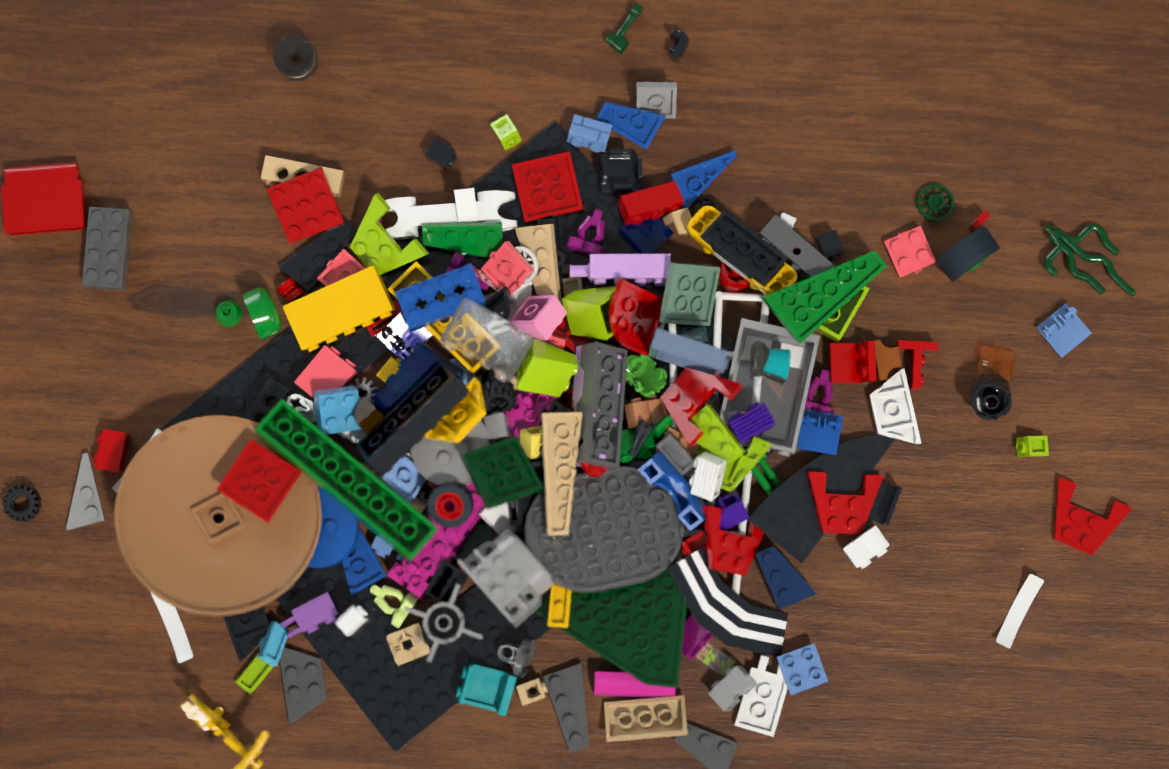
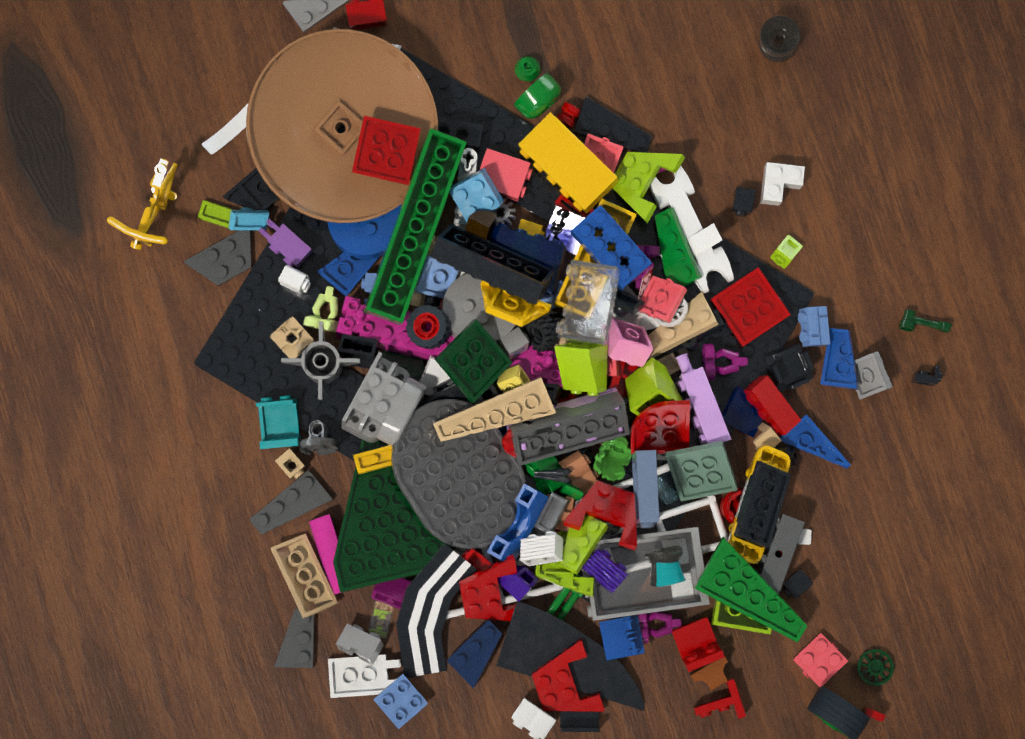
camera: 70 degrees right, 0 degrees up
(274, 165) = (674, 57): tan brick -> none
(305, 205) = (649, 98): red plate -> none
(431, 112) = (776, 178): none -> white brick
(894, 410) = (669, 699): white wing -> none

